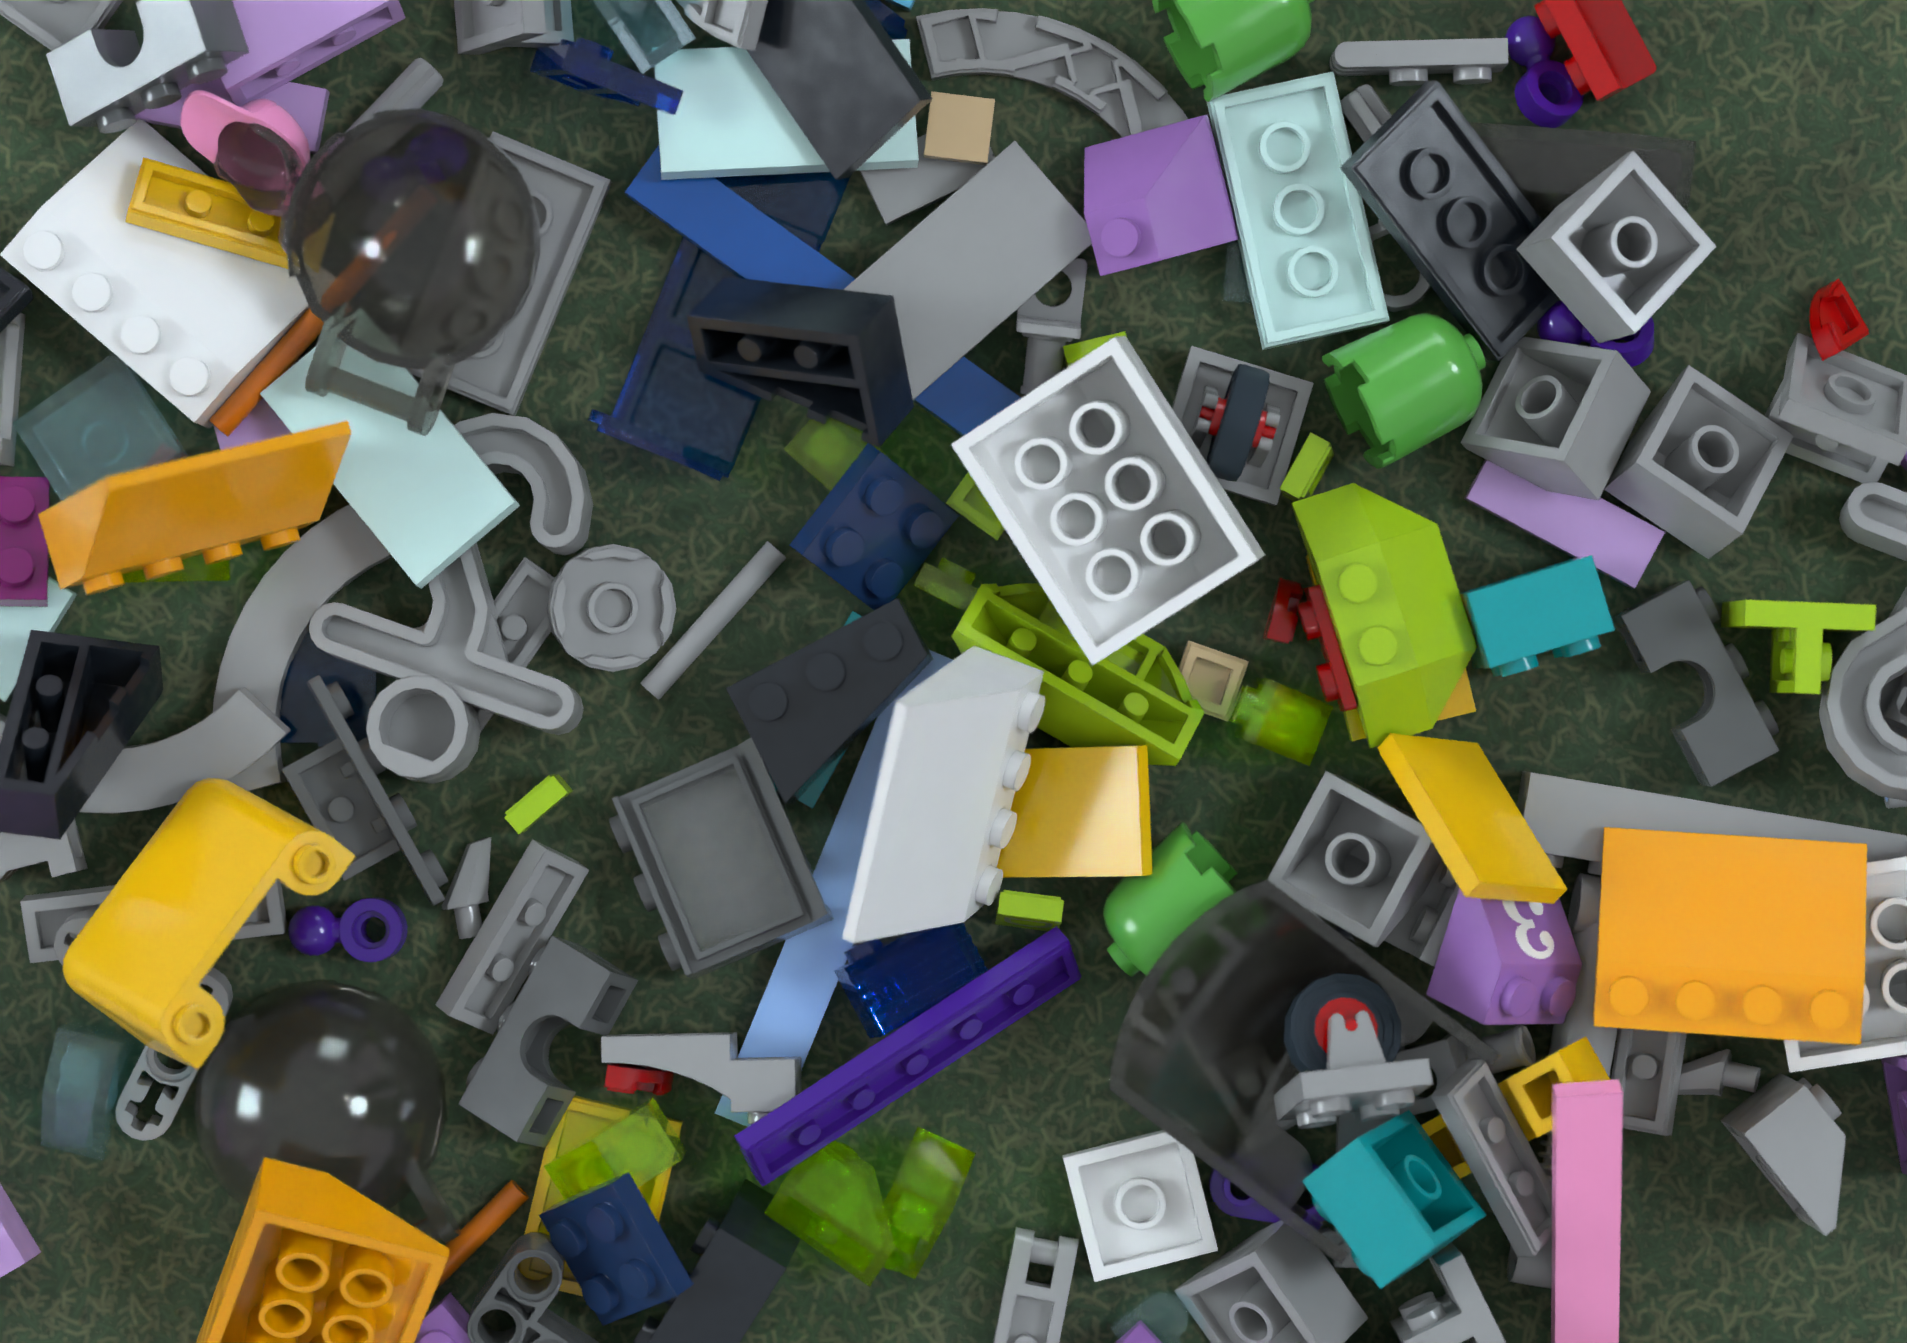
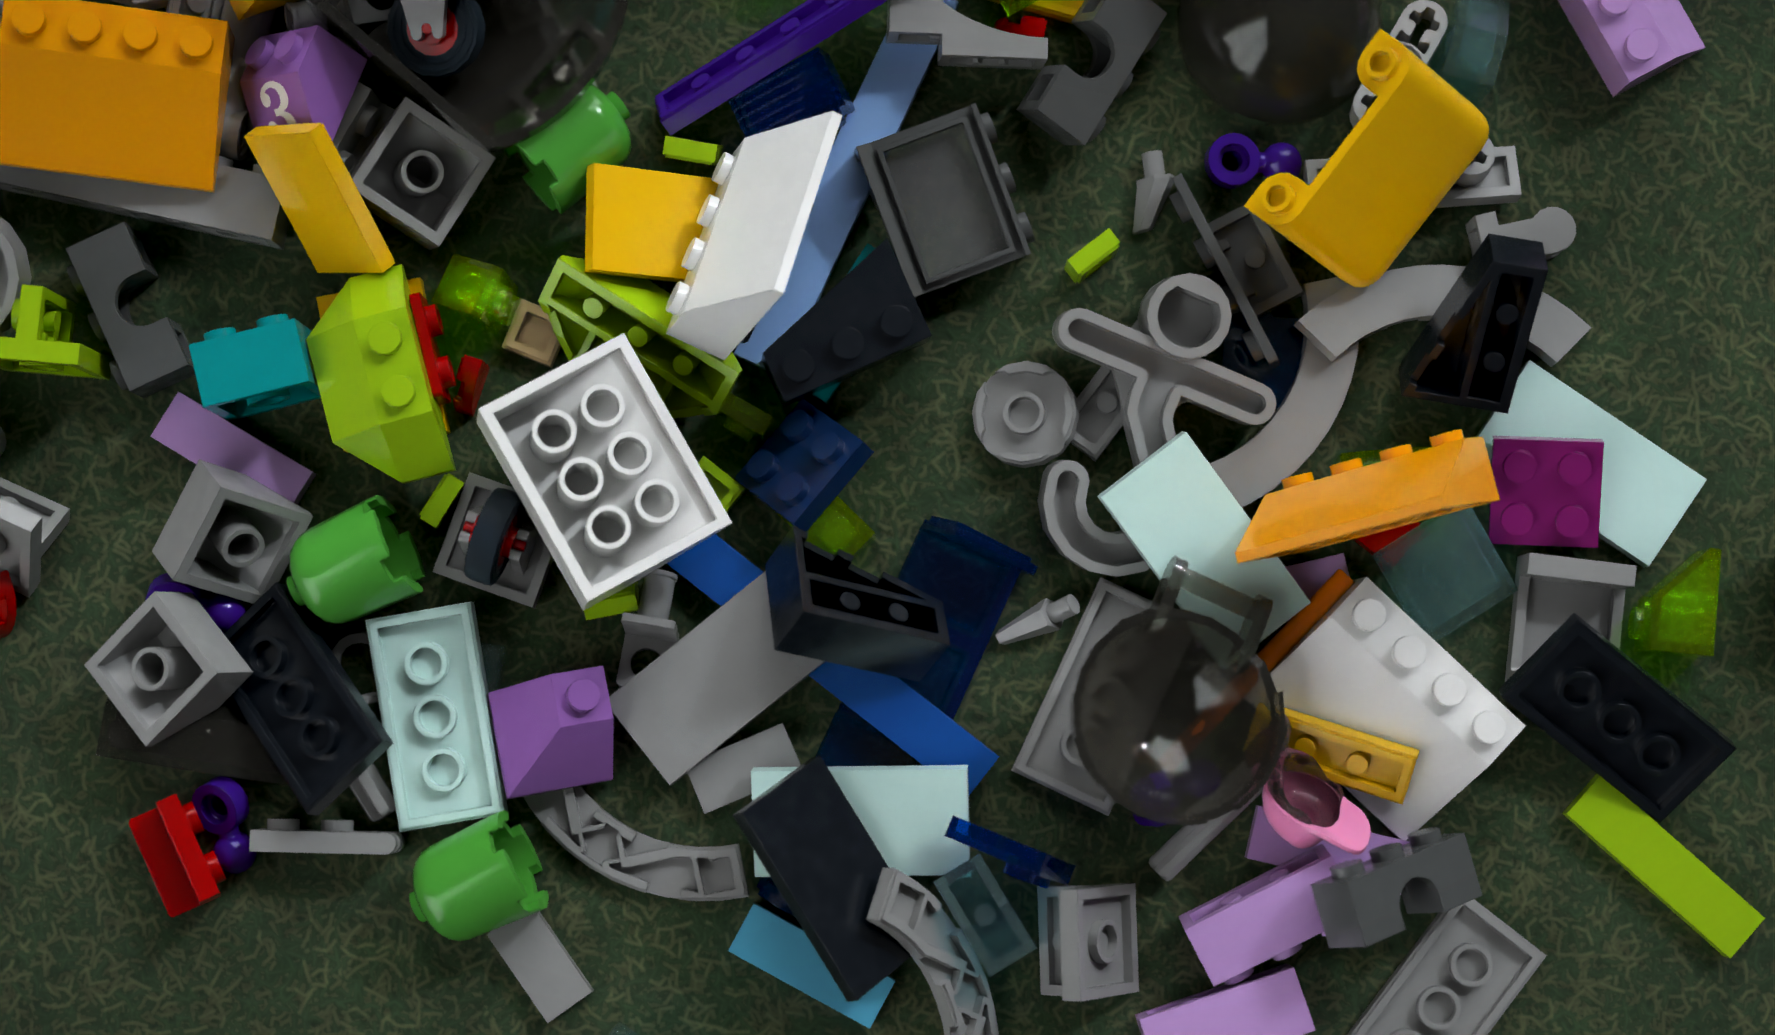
camera: 175 degrees left, 5 degrees down
(512, 936) = (1118, 149): light grey plate -> none
(584, 362) = (1040, 619): none -> light grey bar
(713, 620) = (942, 401): light grey bar -> none
(959, 128) = (715, 798): tan tile -> none
(1699, 463) = (114, 488): light grey slope -> none

